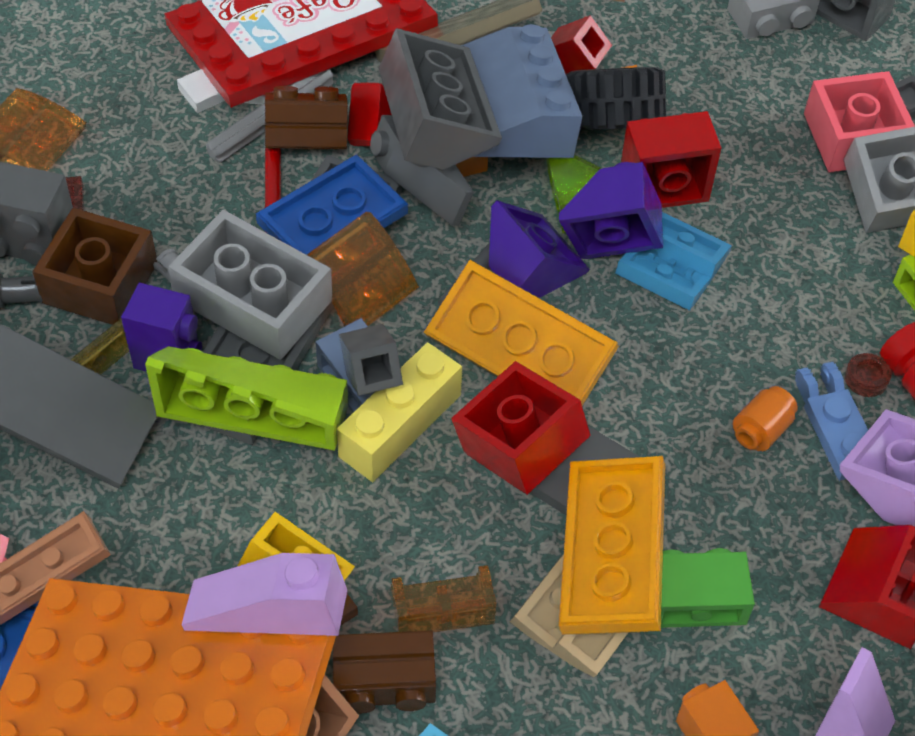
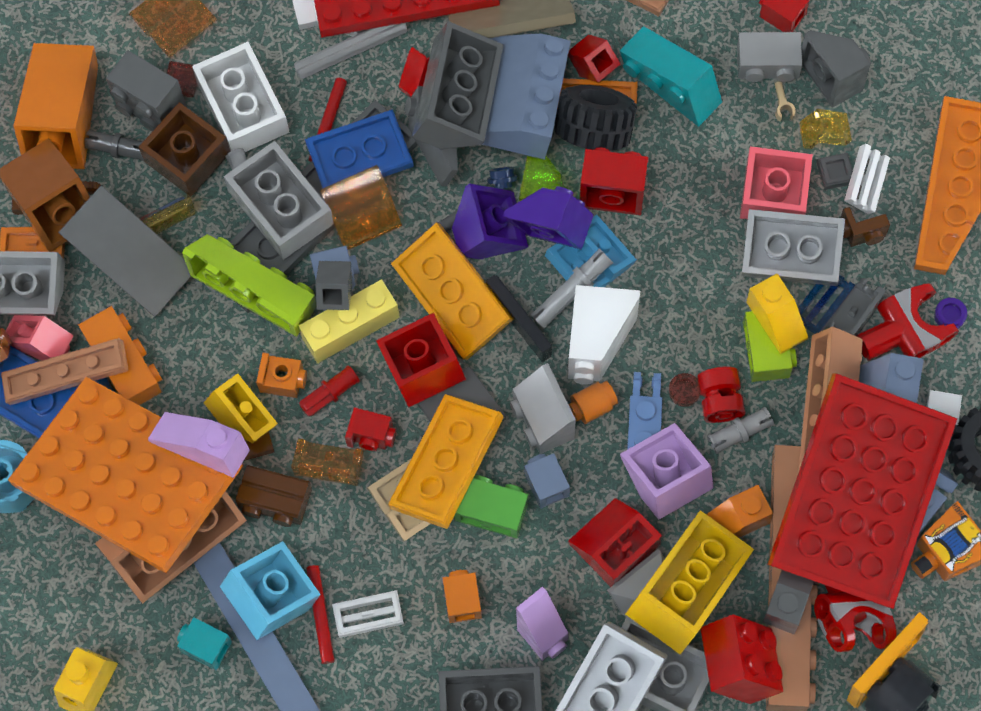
camera: 25 degrees right, 15 degrees up
(126, 566) = (141, 380): none -> orange brick
(151, 187) = (241, 98): none -> white brick
(158, 320) = (210, 214): dark purple brick -> none
(305, 119) = (368, 66): reddish brown brick -> none
(332, 507) = (288, 385): none -> orange brick
(406, 509) = (329, 391): none -> red axle
(487, 539) = (370, 430): none -> red brick
(526, 196) = (502, 177): none -> dark blue plate
(634, 352) = (522, 321): none -> black tile
(681, 278) = (566, 292): none -> light grey pin
(682, 39) = (672, 74): none -> teal wedge
(714, 439) = (543, 410): none -> light grey slope
(731, 325) = (598, 329): none -> white slope
(756, 529) = (546, 479): none -> sand blue brick
(815, 50) = (782, 102): none -> tan hand
(874, 54) = (825, 127): none -> clear yellow bracket

